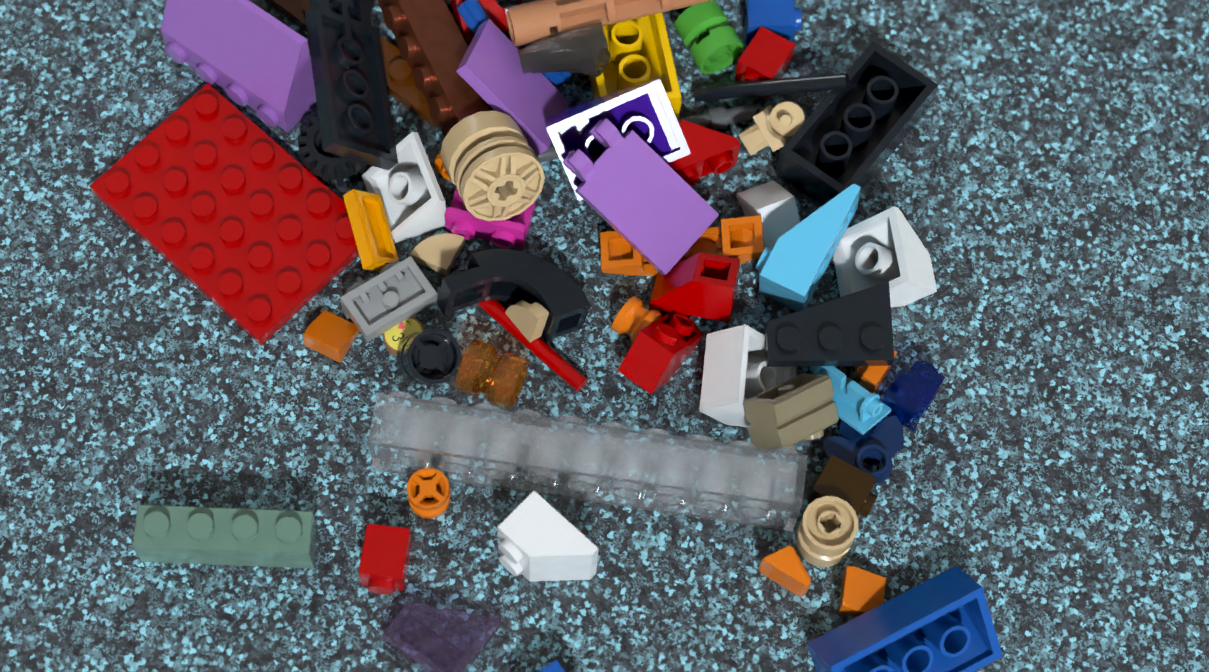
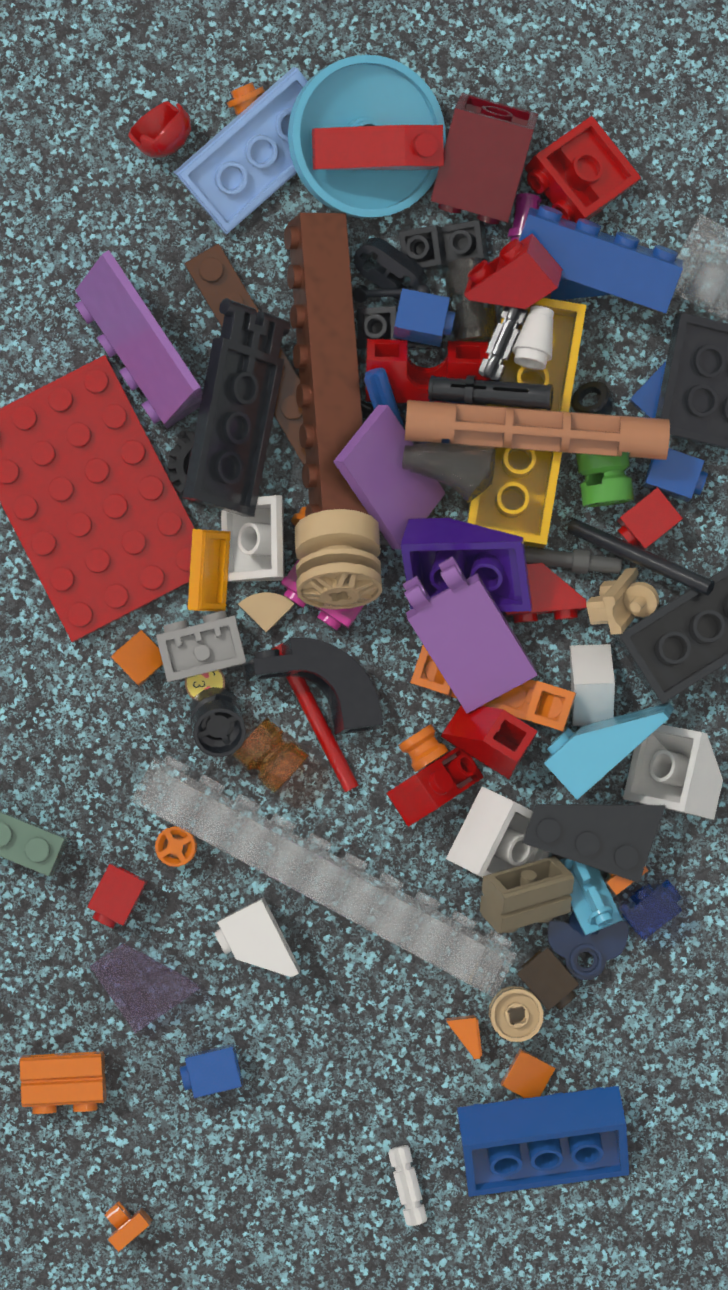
camera: 25 degrees right, 20 degrees up
(528, 318) = (324, 716): tan tile -> none

